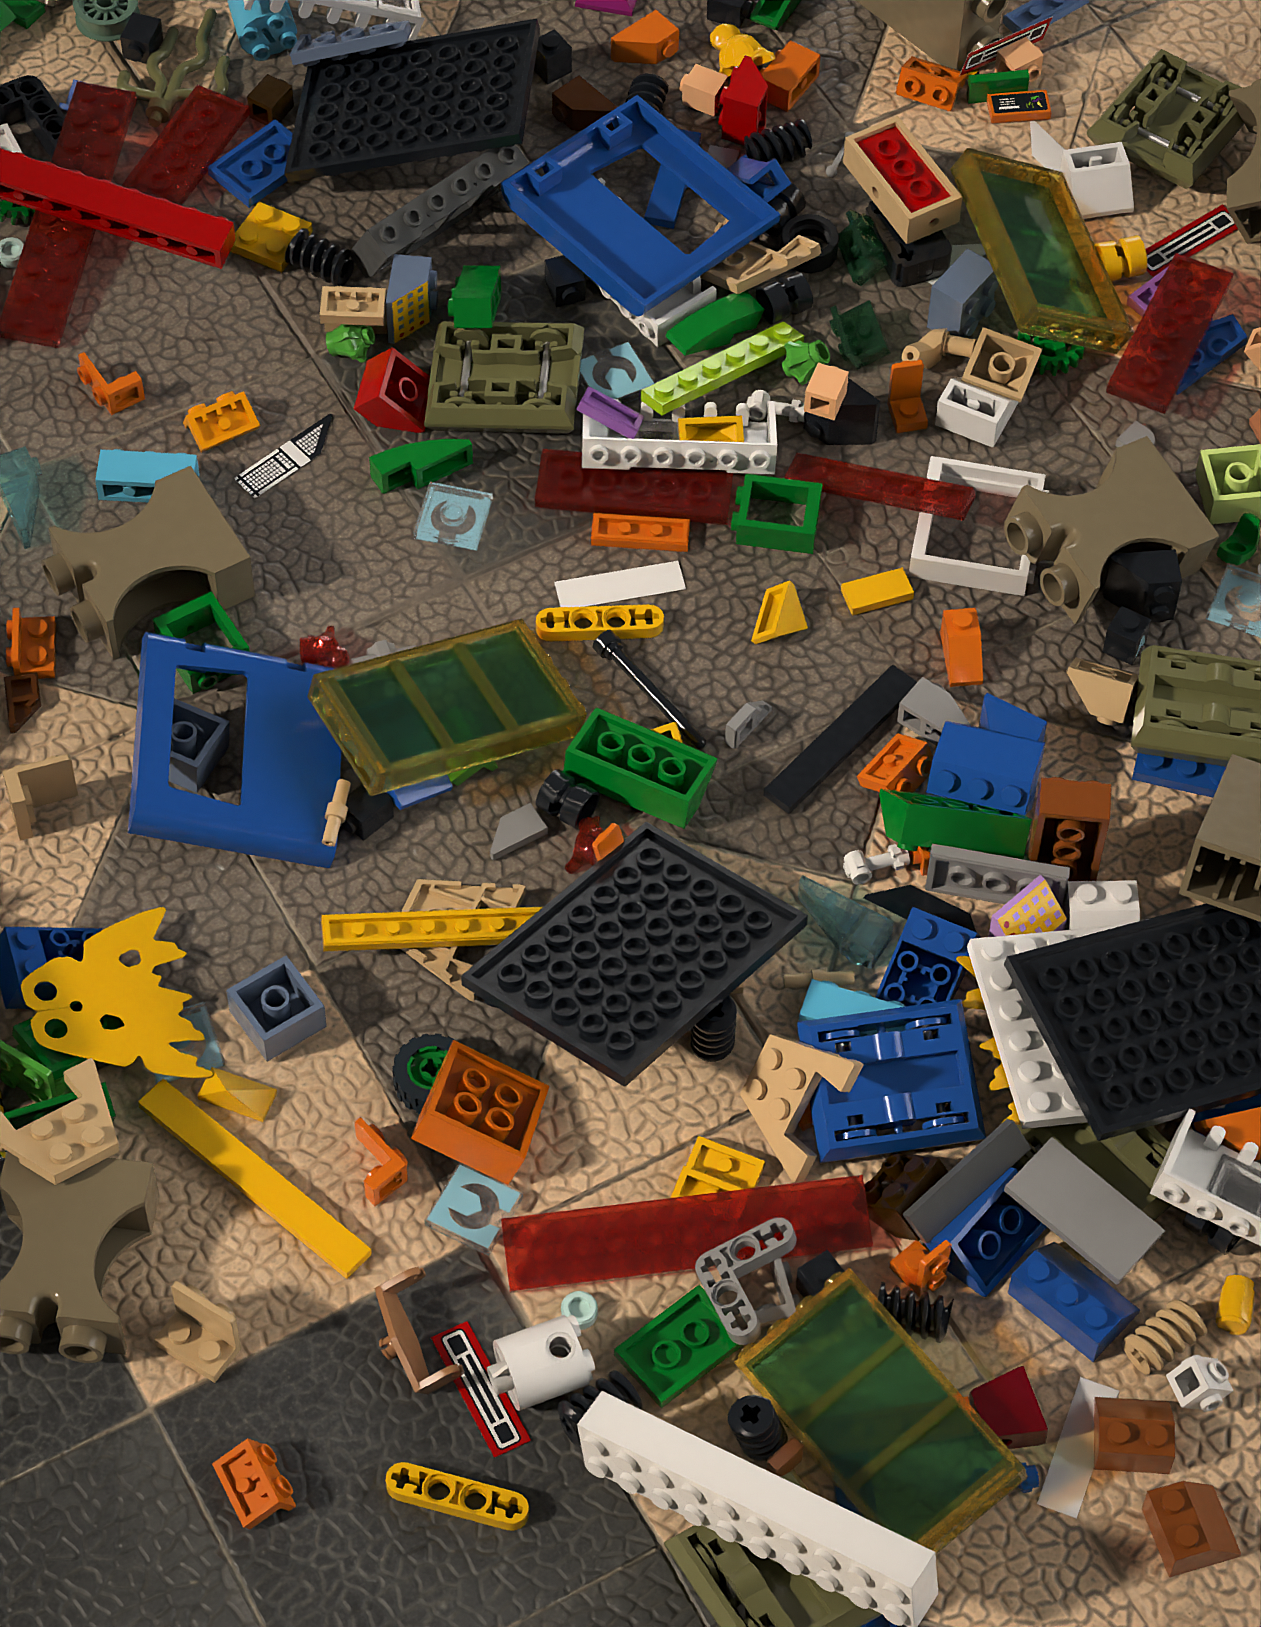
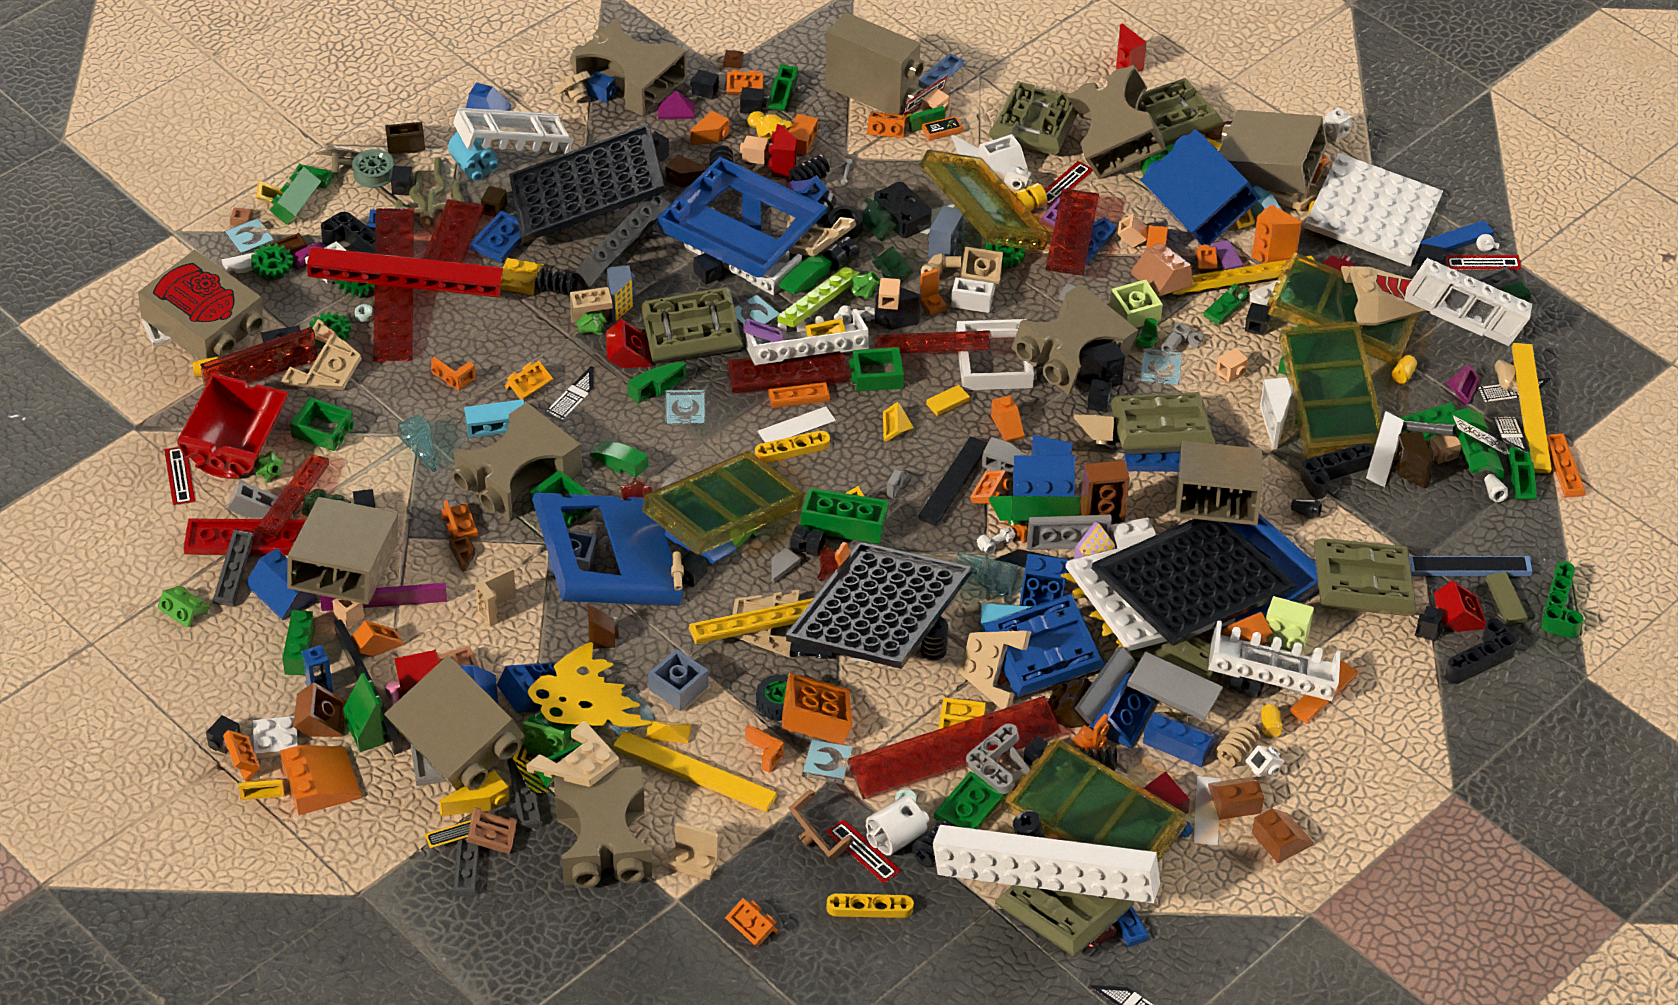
camera: 15 degrees left, 10 degrees down
(184, 888) = (601, 629): none -> reddish brown slope
(311, 51) = (534, 158): sand blue wing -> none
(319, 587) = (621, 458): none -> green slope
(475, 297) = (660, 284): green brick -> none
(609, 646) = (803, 458): black piece -> none
(902, 179) = (892, 175): brick -> none
(1109, 220) = (1017, 178): none -> white brick

